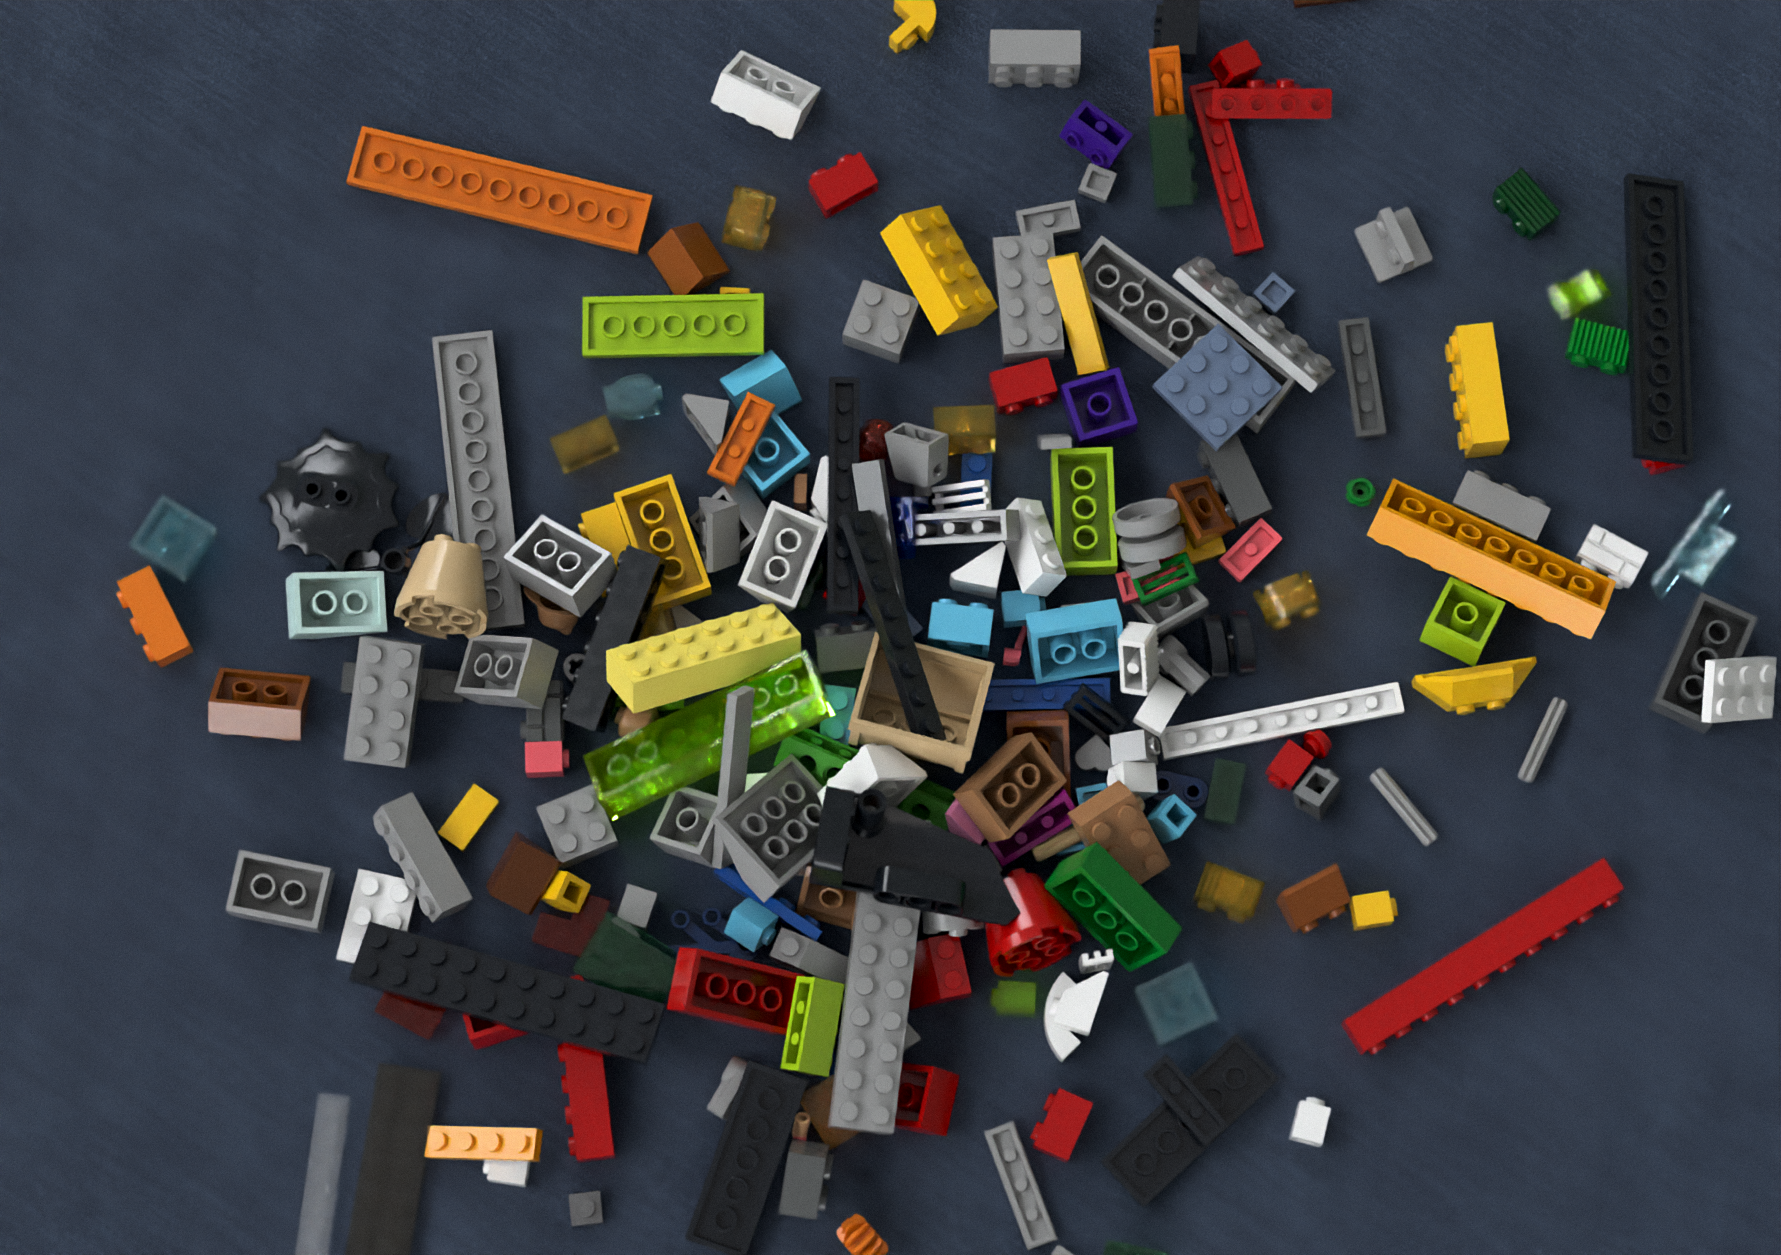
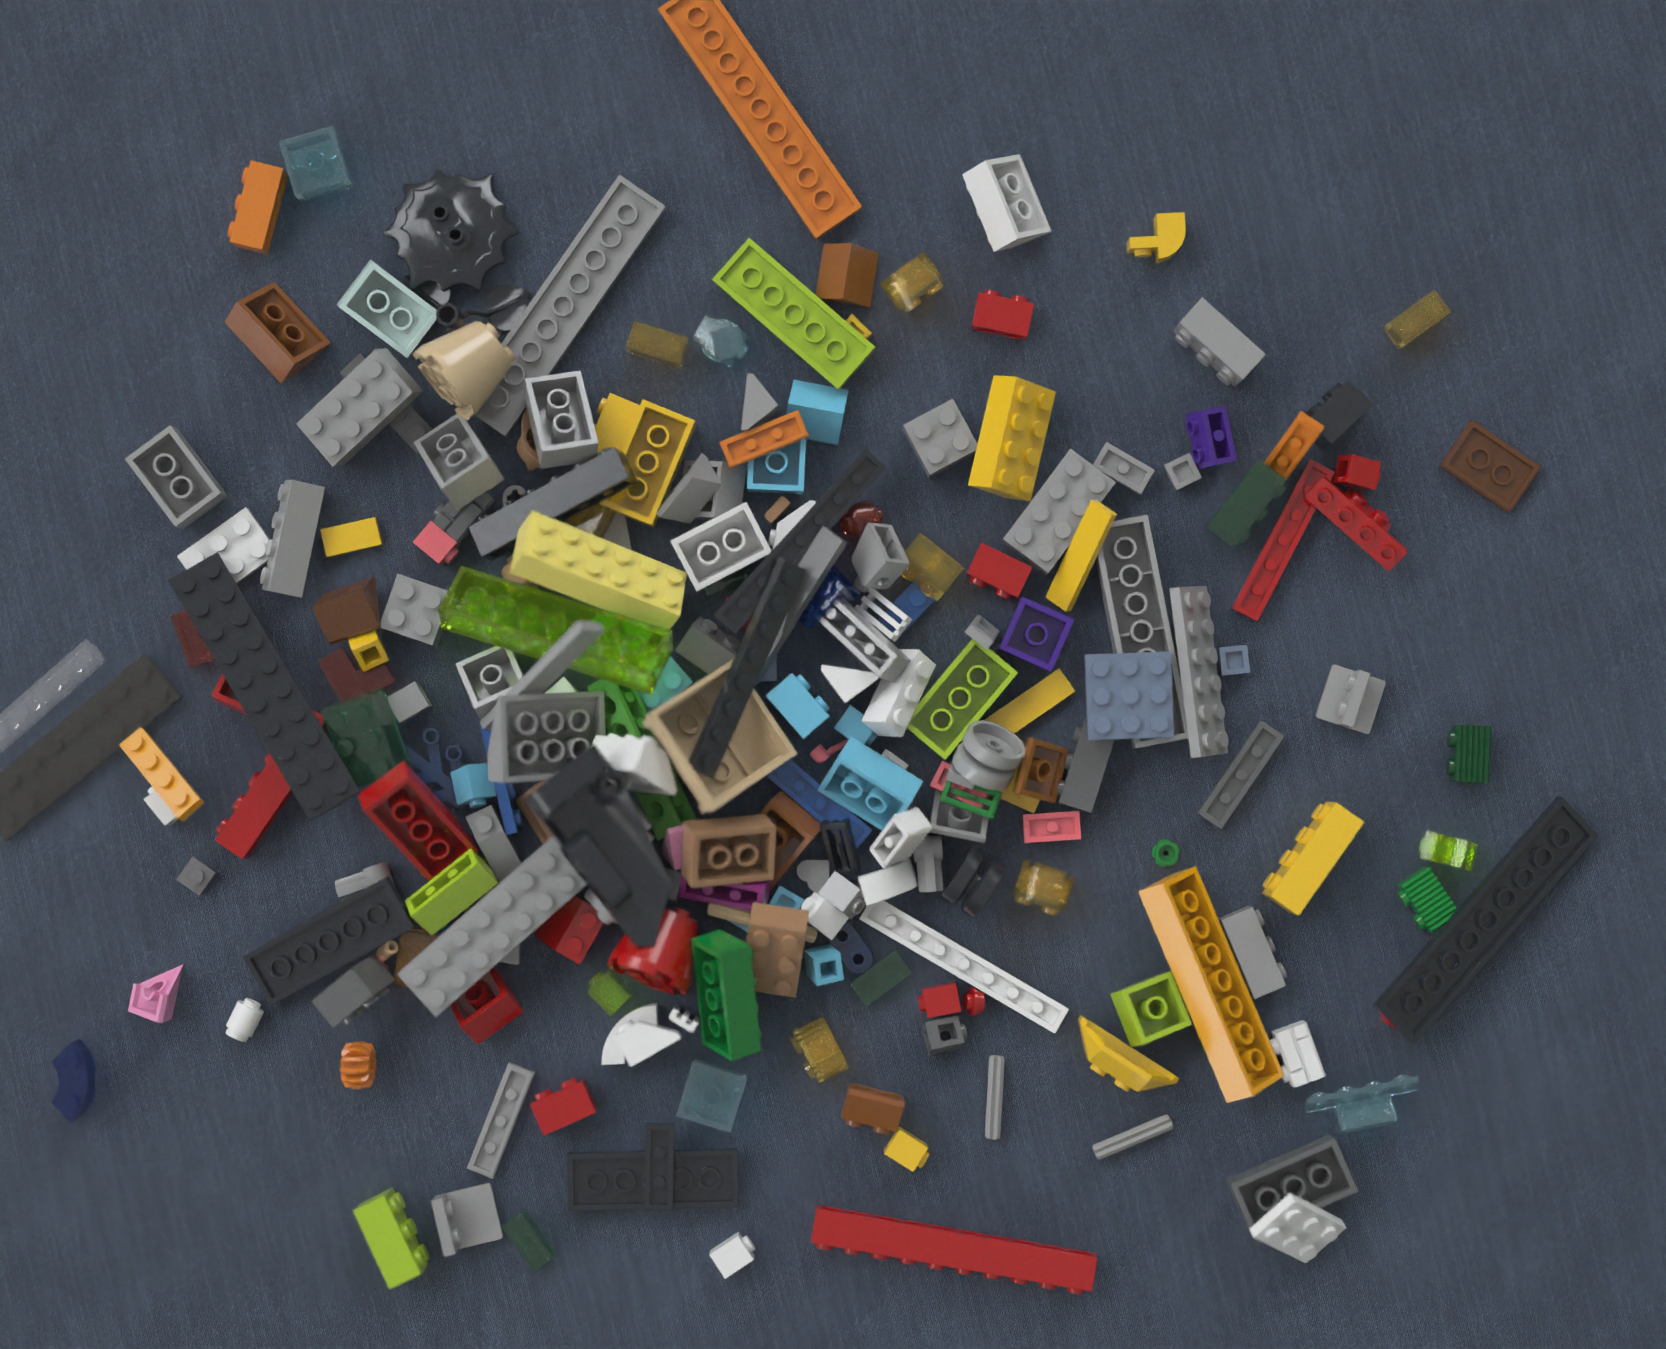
camera: 40 degrees right, 10 degrees up
(1145, 463) = (1033, 702): none -> yellow tile

